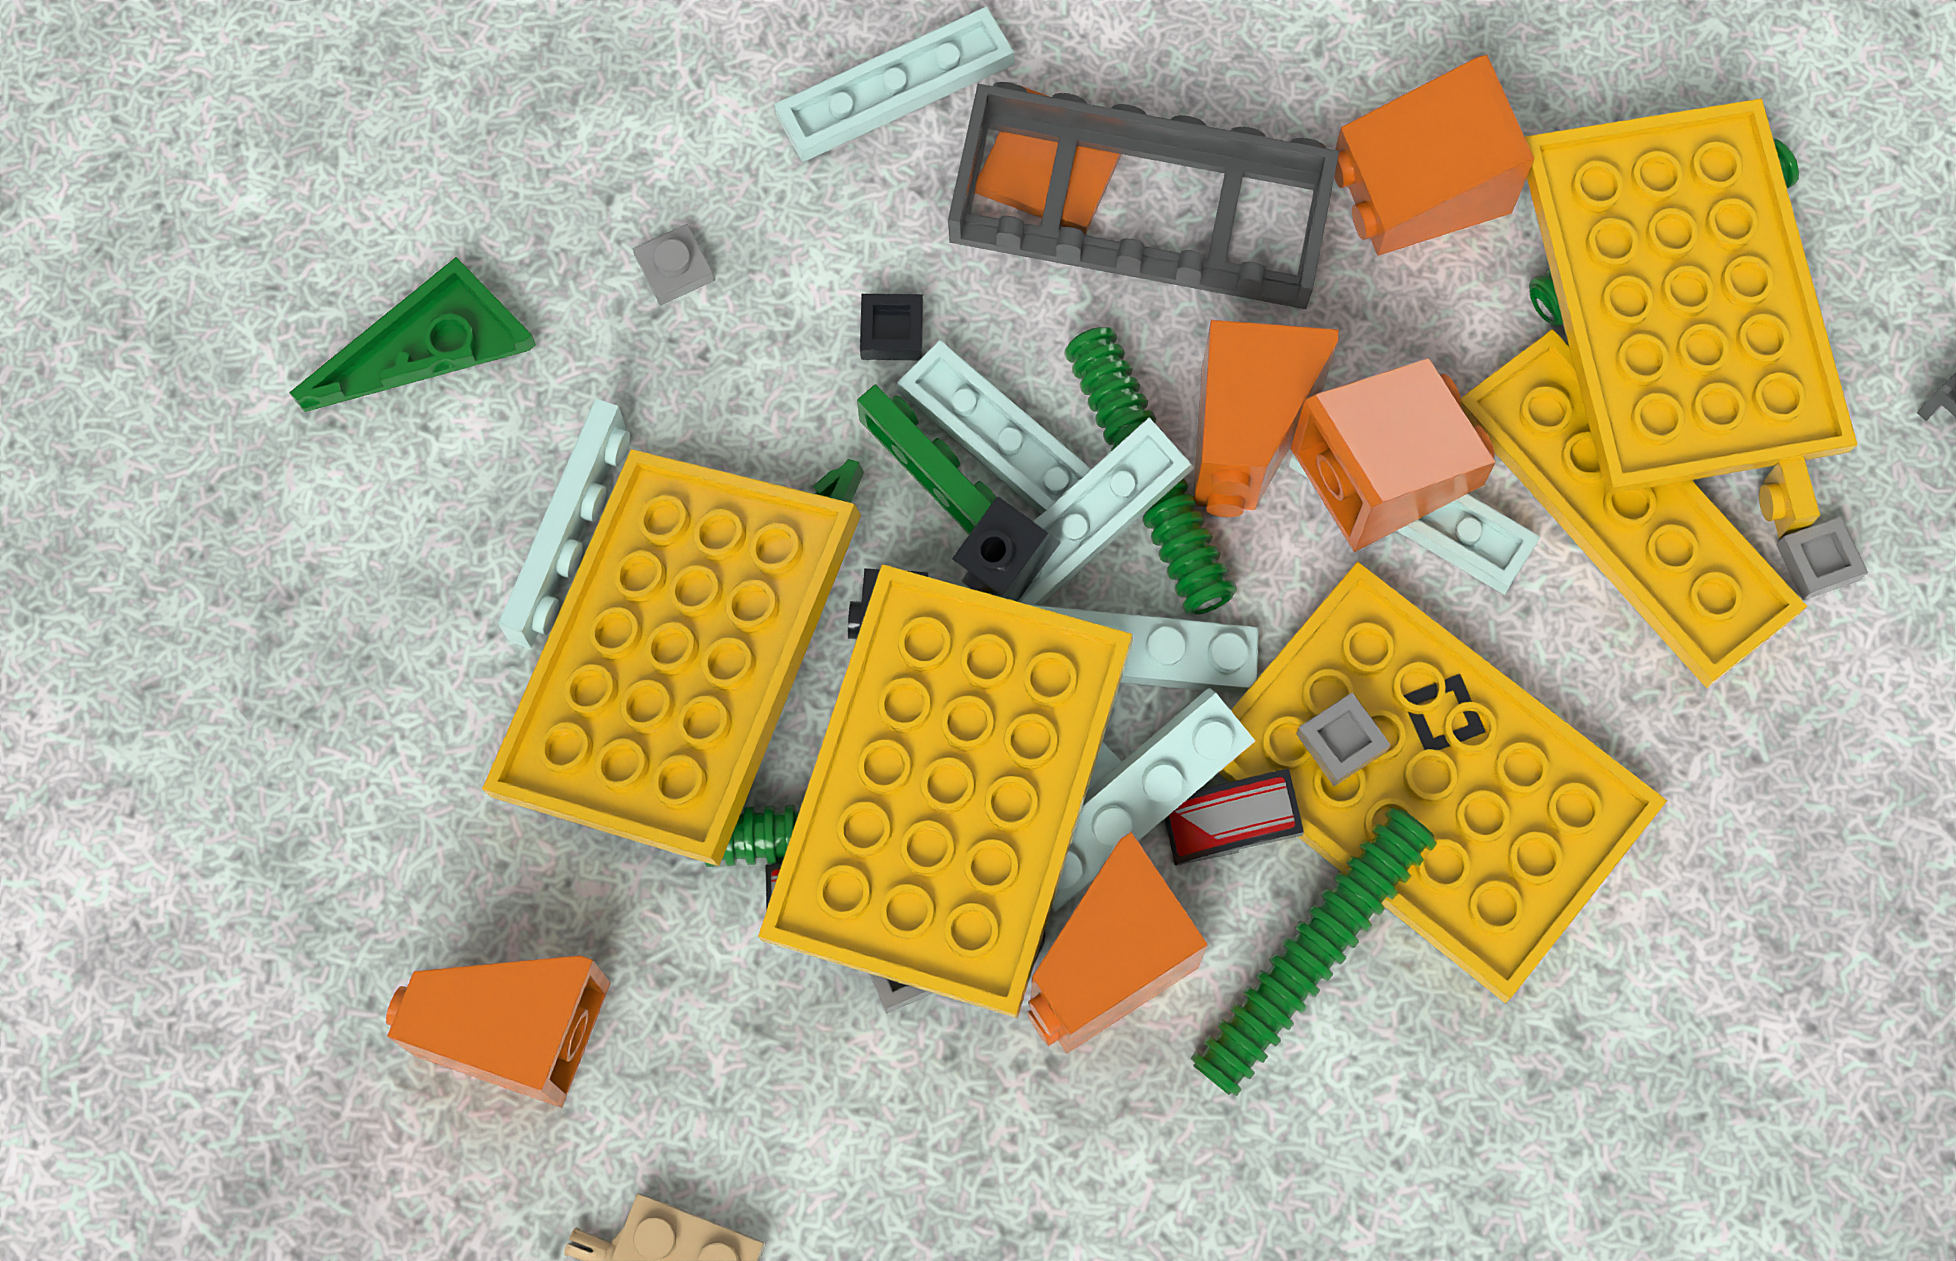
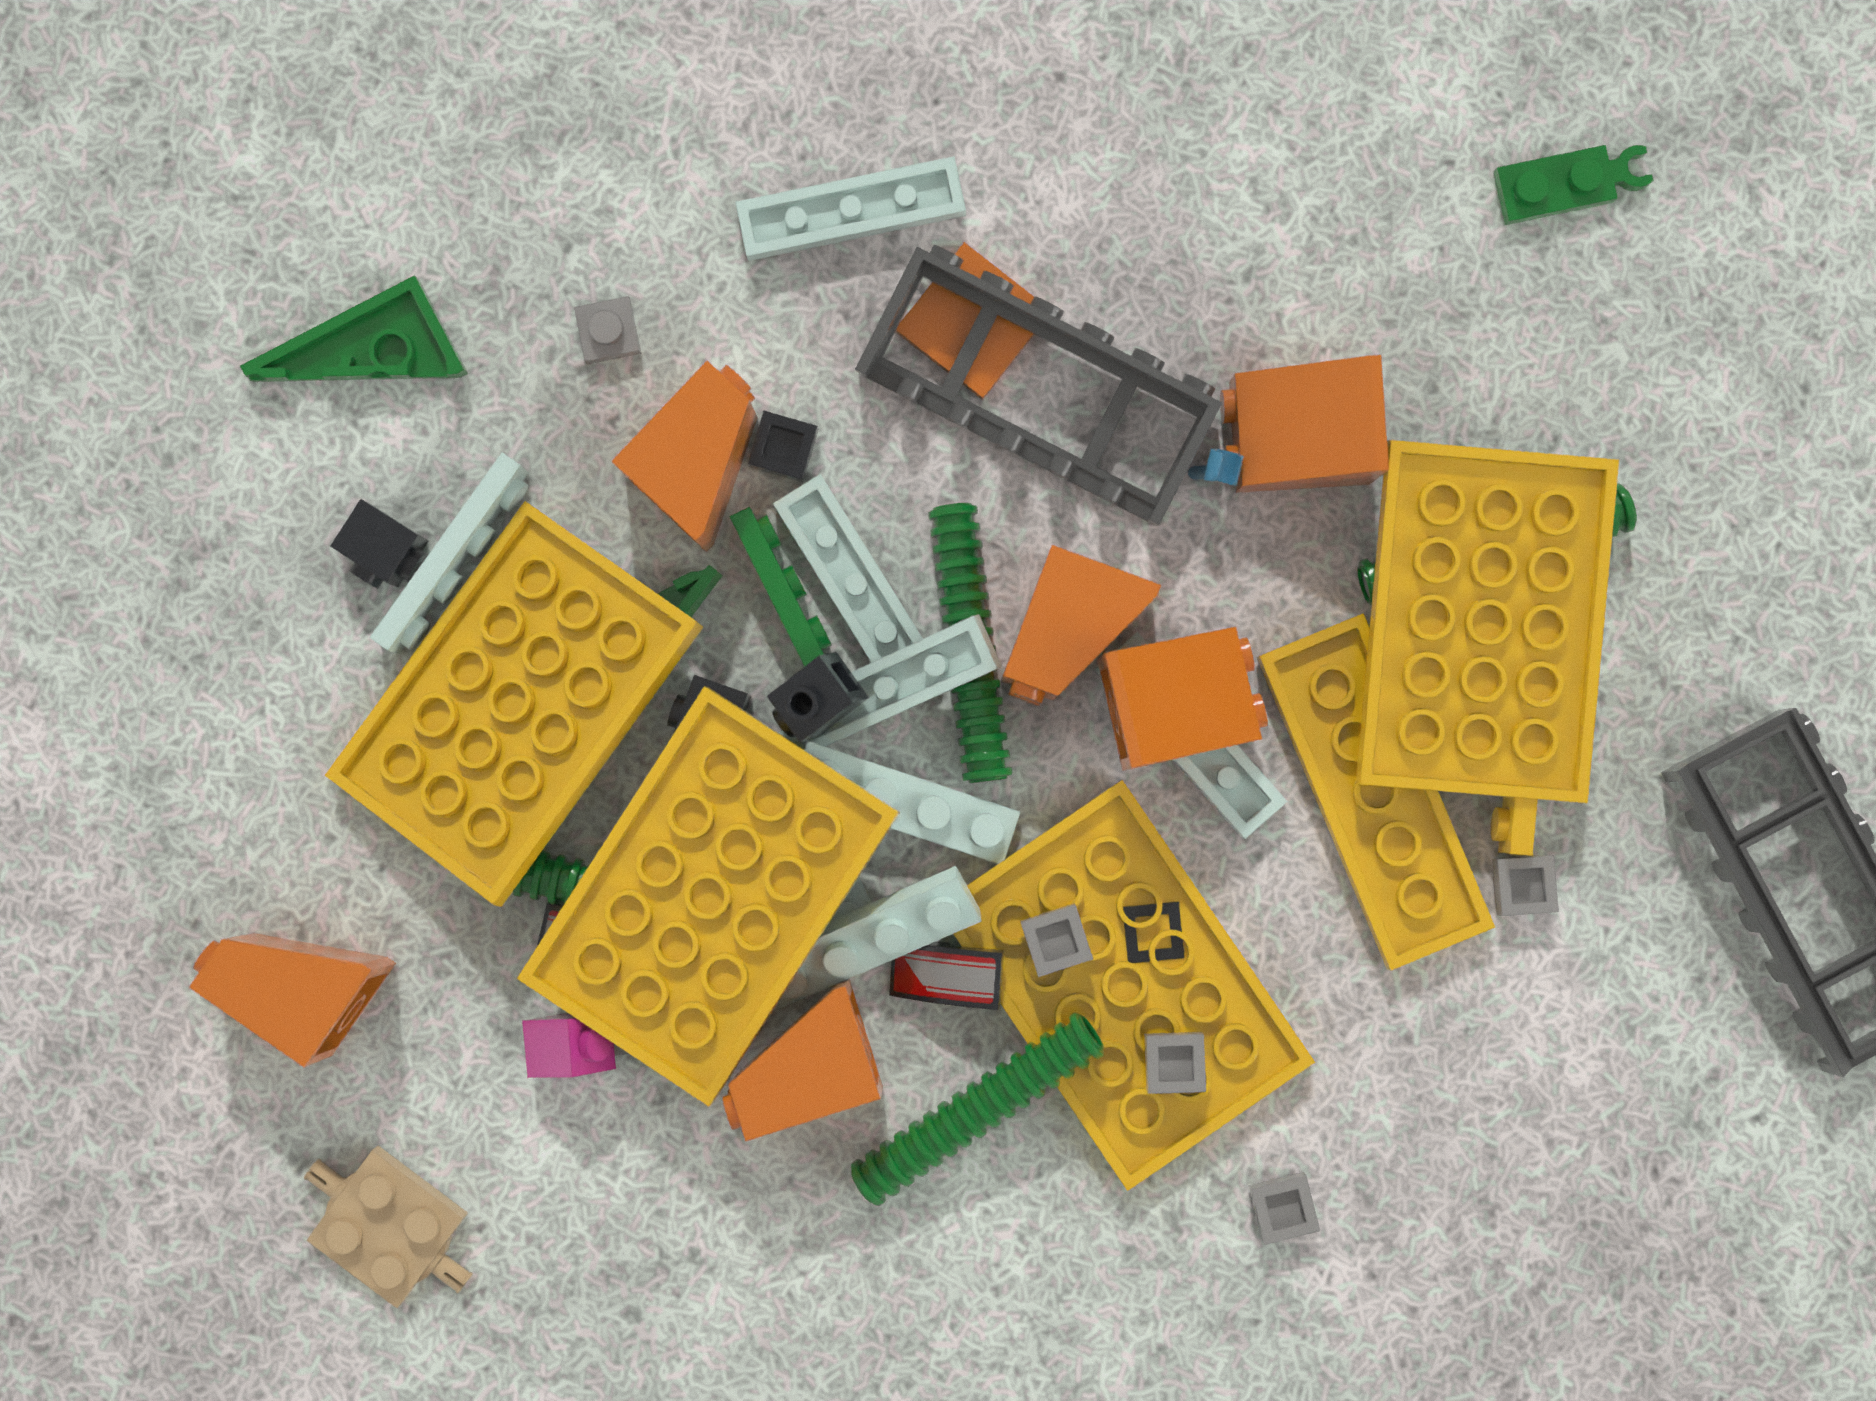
camera: 15 degrees right, 15 degrees up
(484, 534) = (379, 546): none -> black brick
(796, 347) = (694, 451): none -> orange slope
(832, 1008) = (565, 1048): none -> dark pink brick
(1357, 221) = (1221, 467): none -> dark azure hand
(1516, 835) = (1175, 1062): none -> light grey plate
(1689, 973) = (1284, 1208): none -> light grey plate

